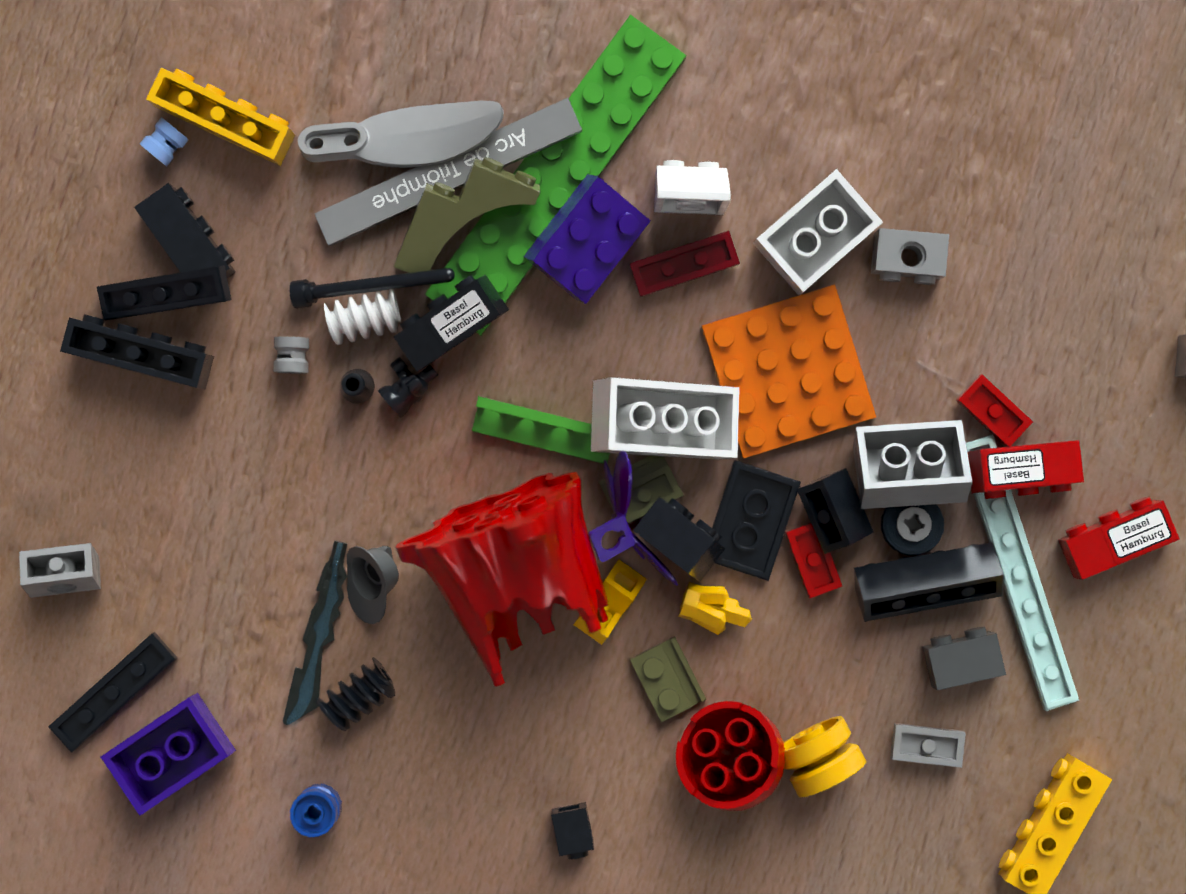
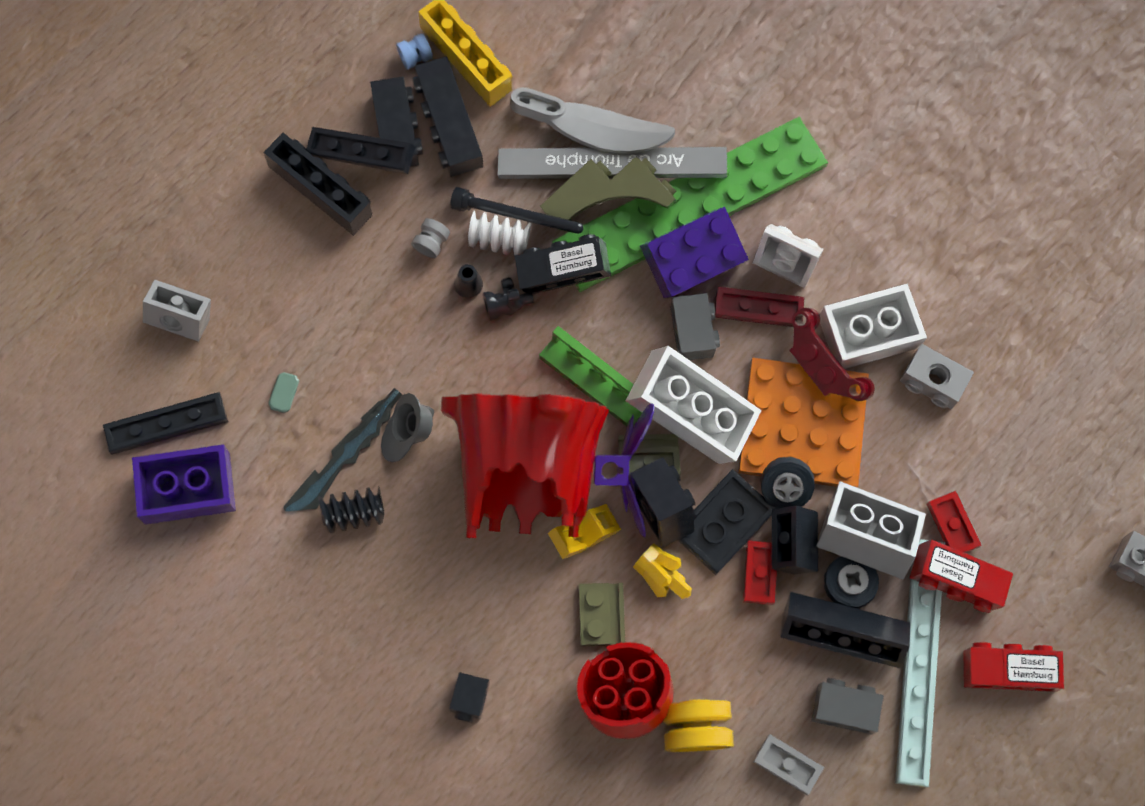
camera: 20 degrees right, 15 degrees down
(219, 598) = (283, 392): none -> sand green piece
(240, 204) = (448, 116): none -> black brick
(316, 810) = (274, 582): blue wheel -> none
(624, 321) = (693, 326): none -> dark grey brick
(780, 302) = (821, 363): none -> dark red plate
(813, 455) = (787, 493): none -> black wheel

